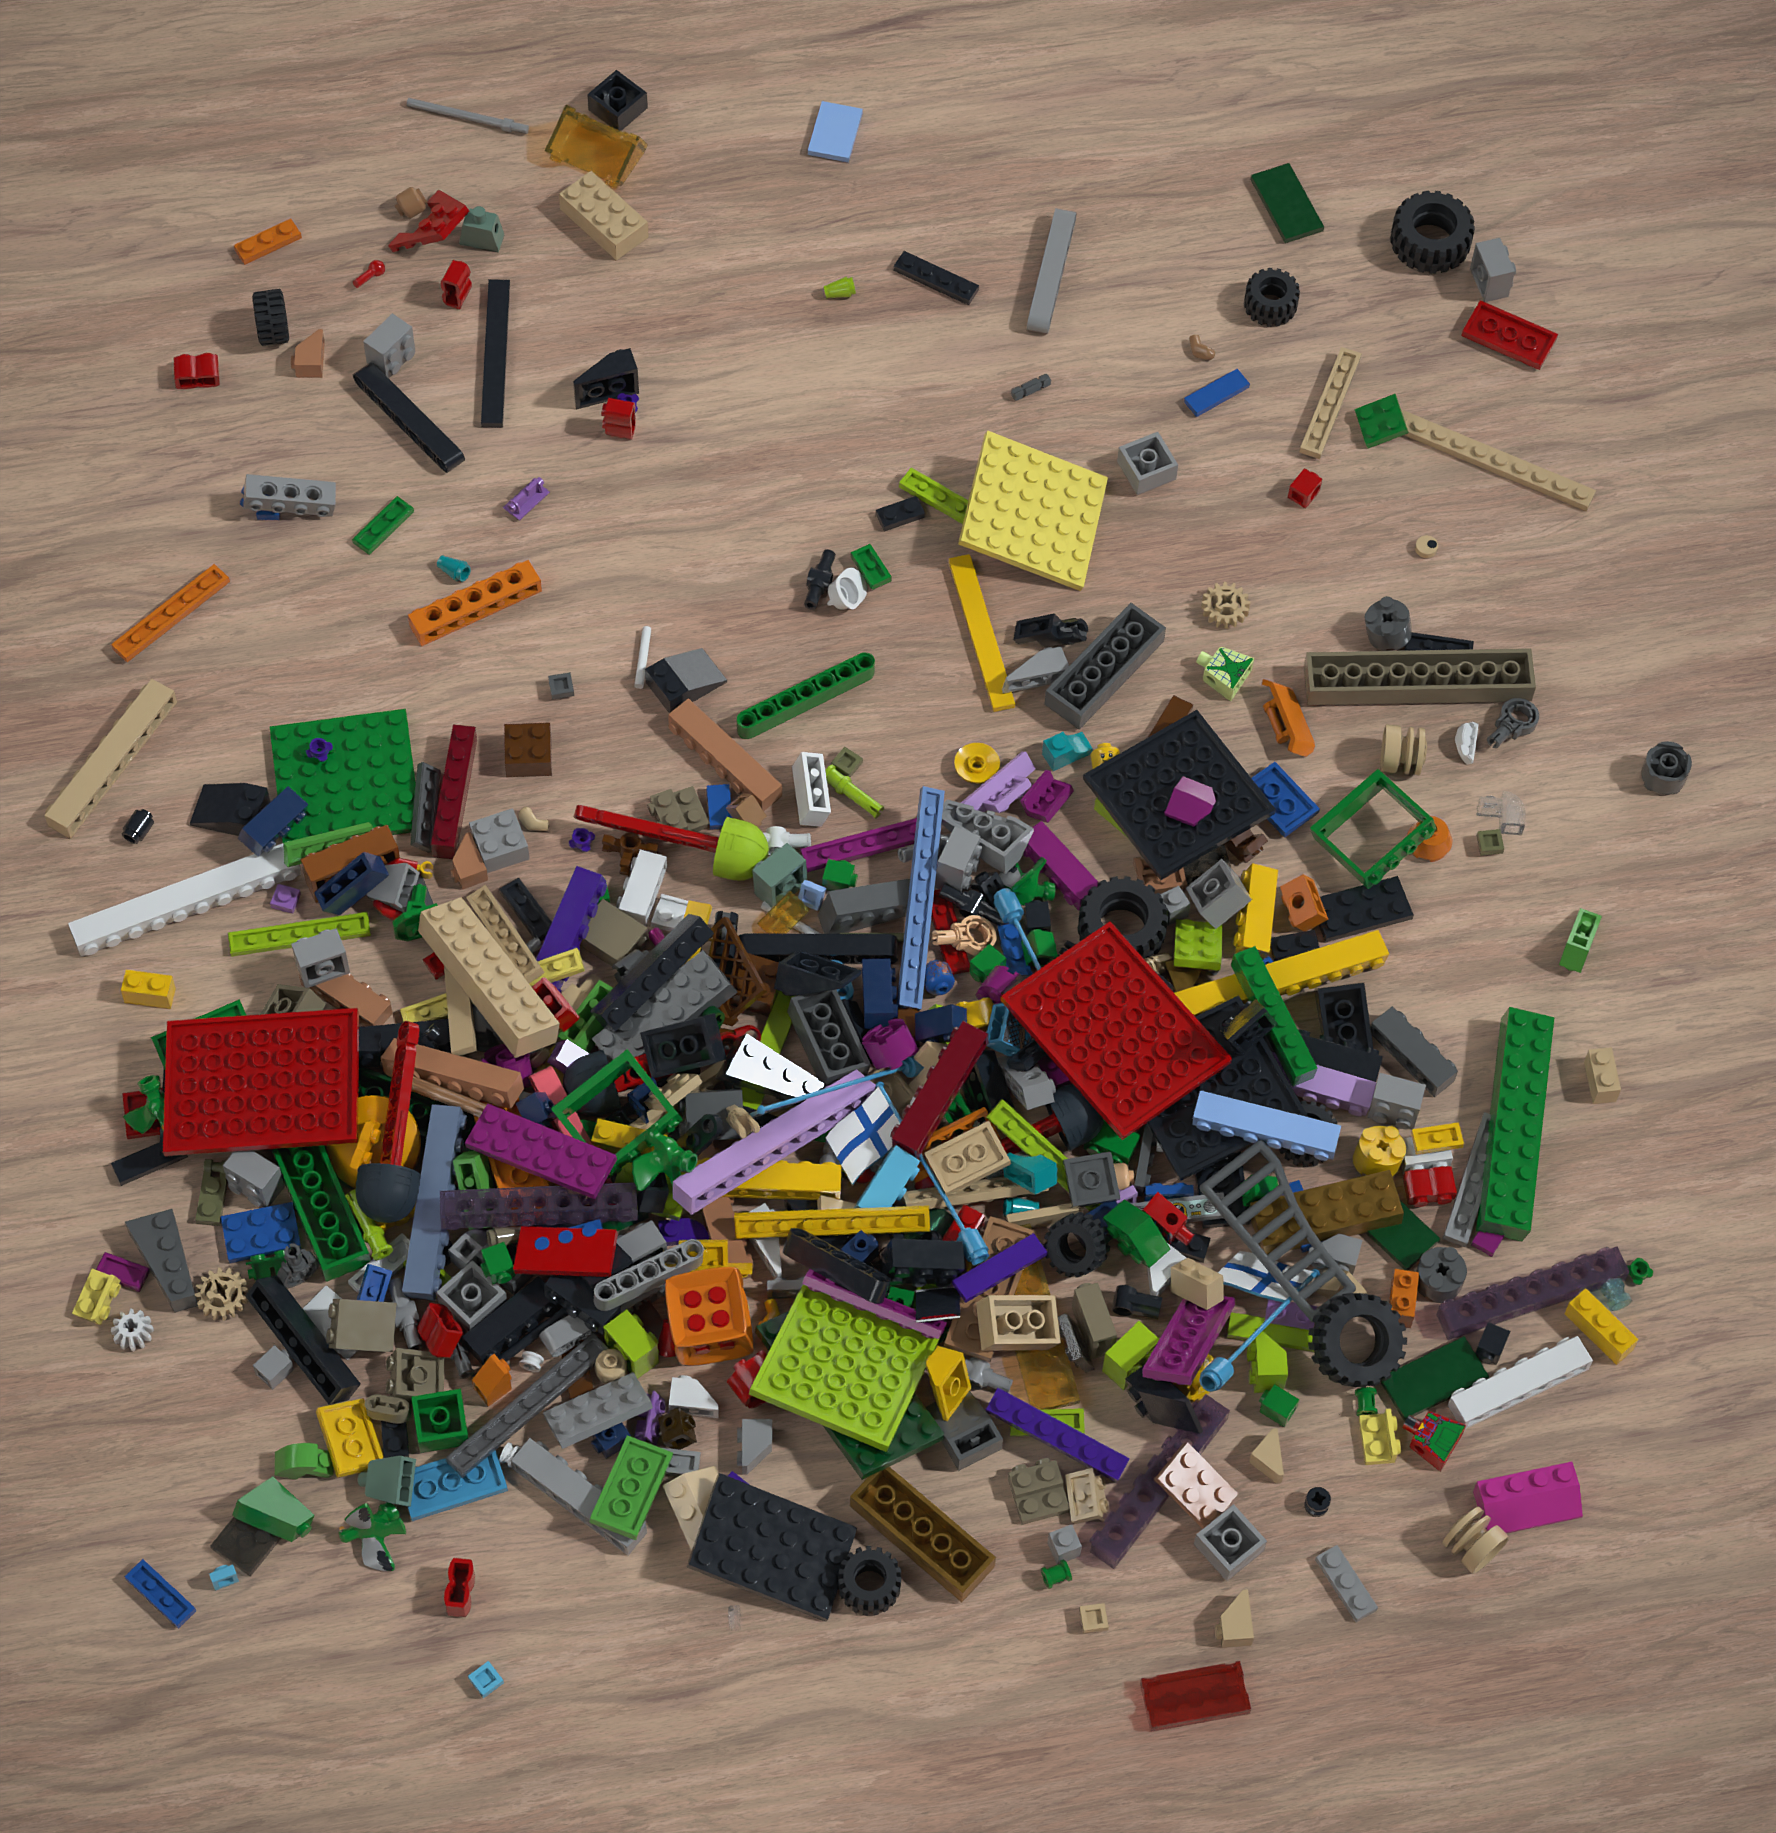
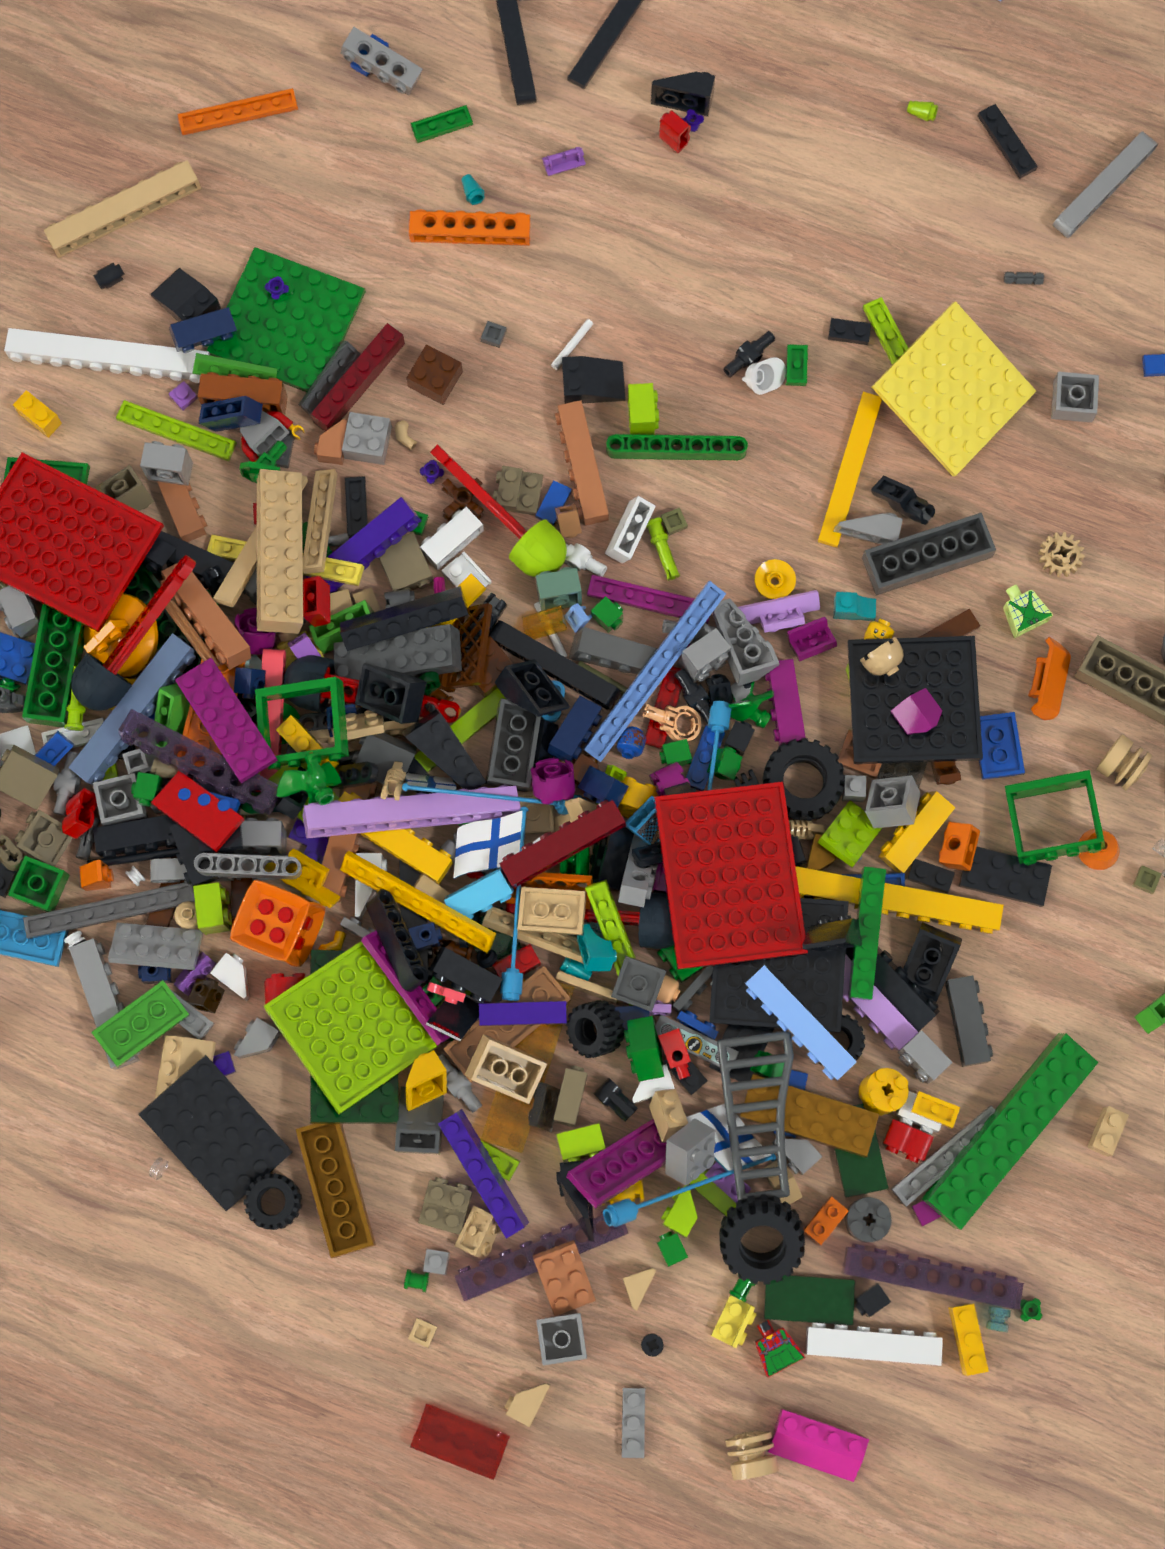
camera: 35 degrees right, 15 degrees up
(752, 675) = (642, 409): none -> lime brick
(917, 1288) = (450, 995): none -> coral plate
(1130, 768) = (884, 658): none -> tan cylinder
(1240, 1297) = (690, 1151): none -> light grey brick

